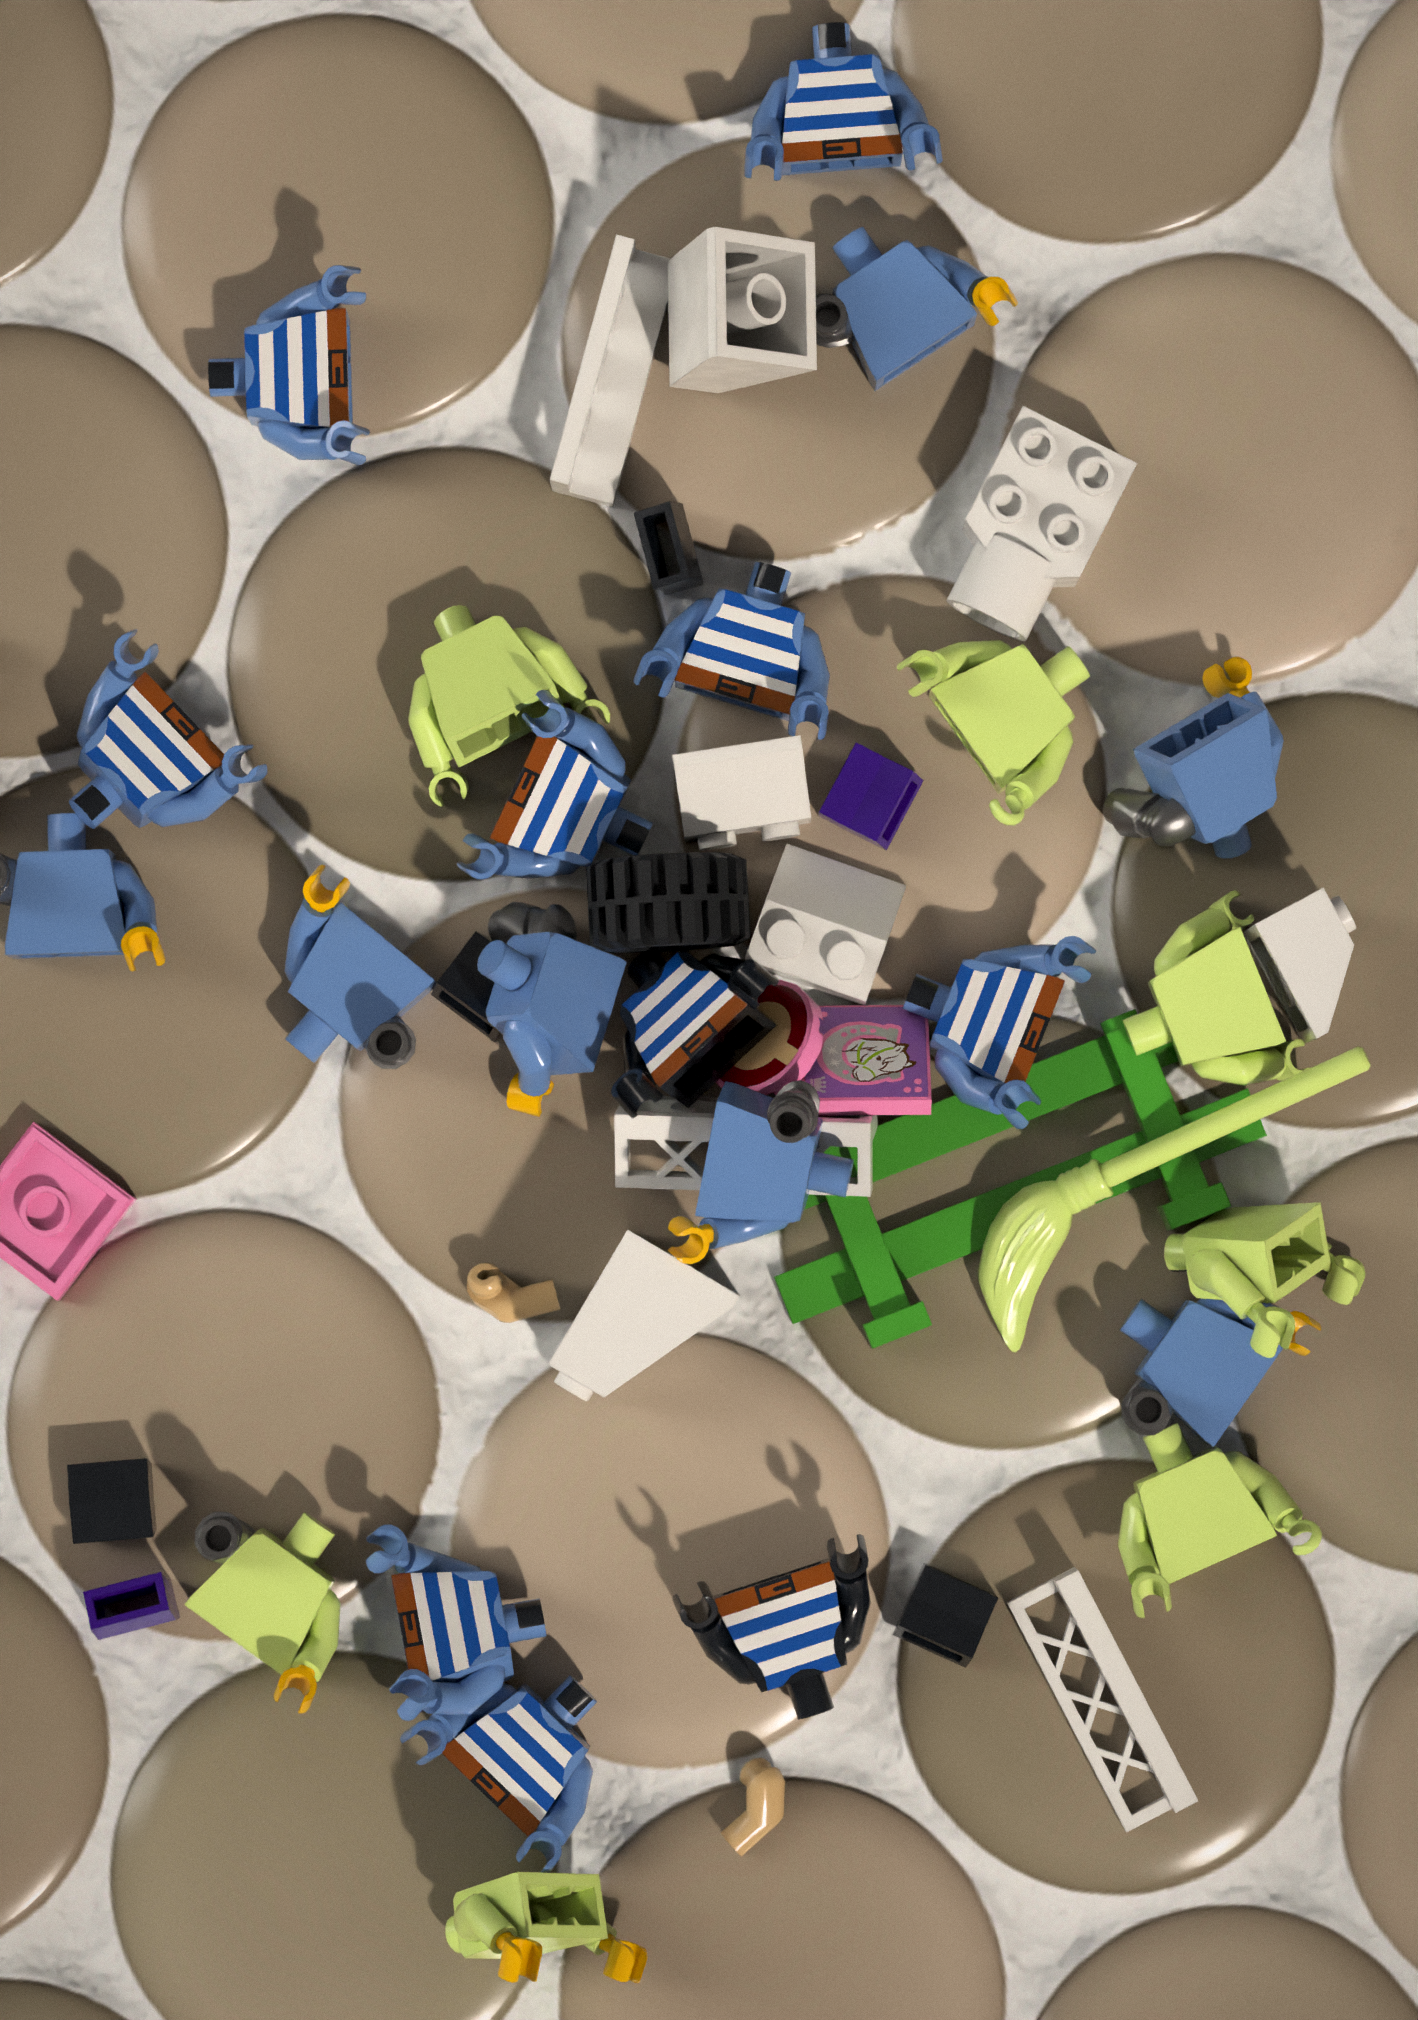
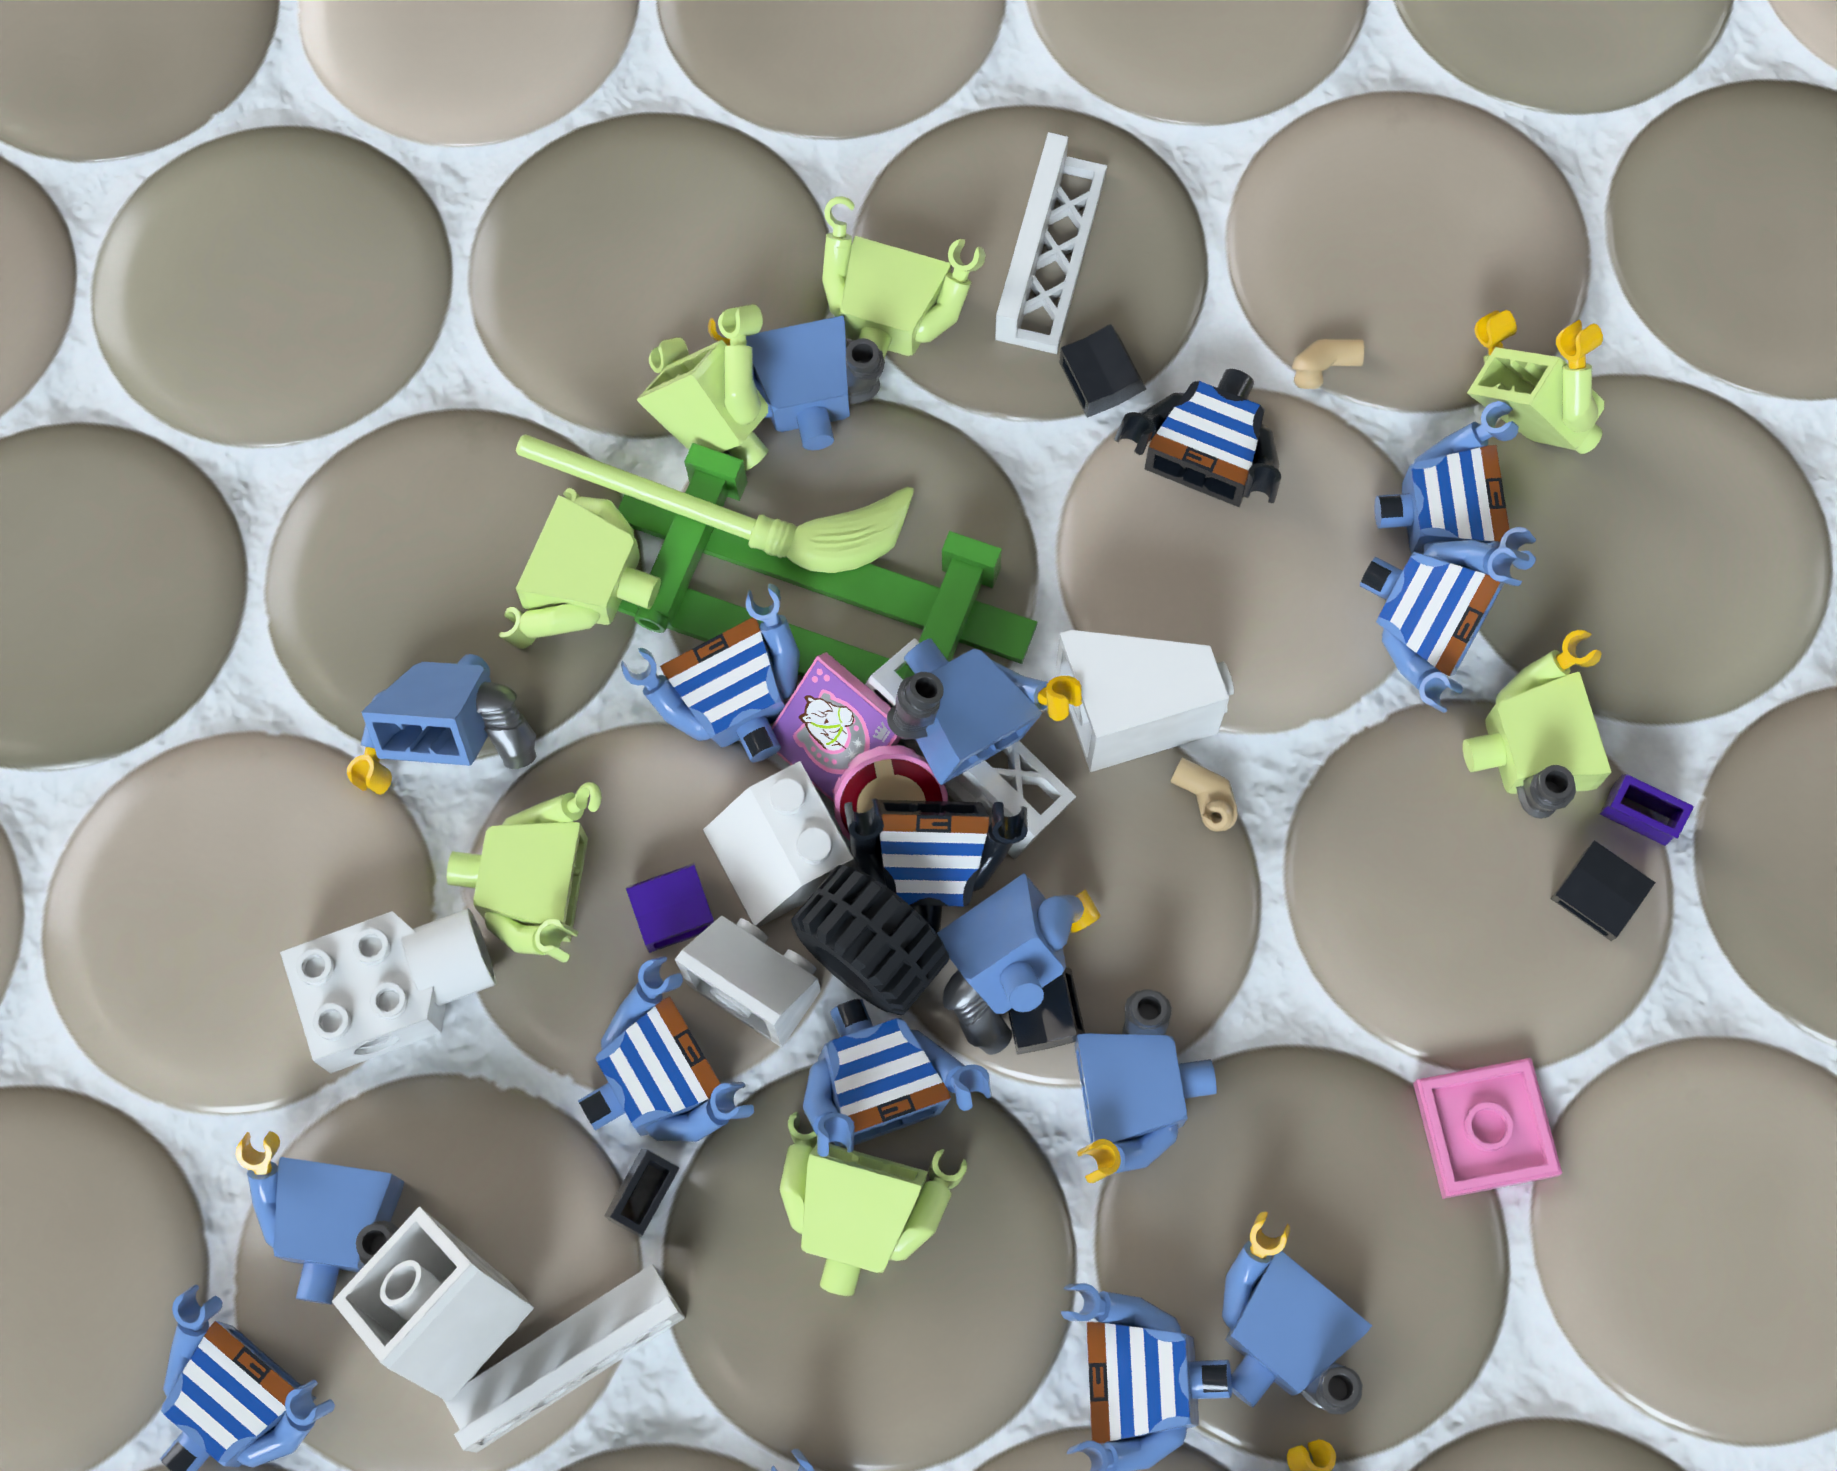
camera: 140 degrees left, 15 degrees down
(1306, 958) = (493, 542): white slope -> none

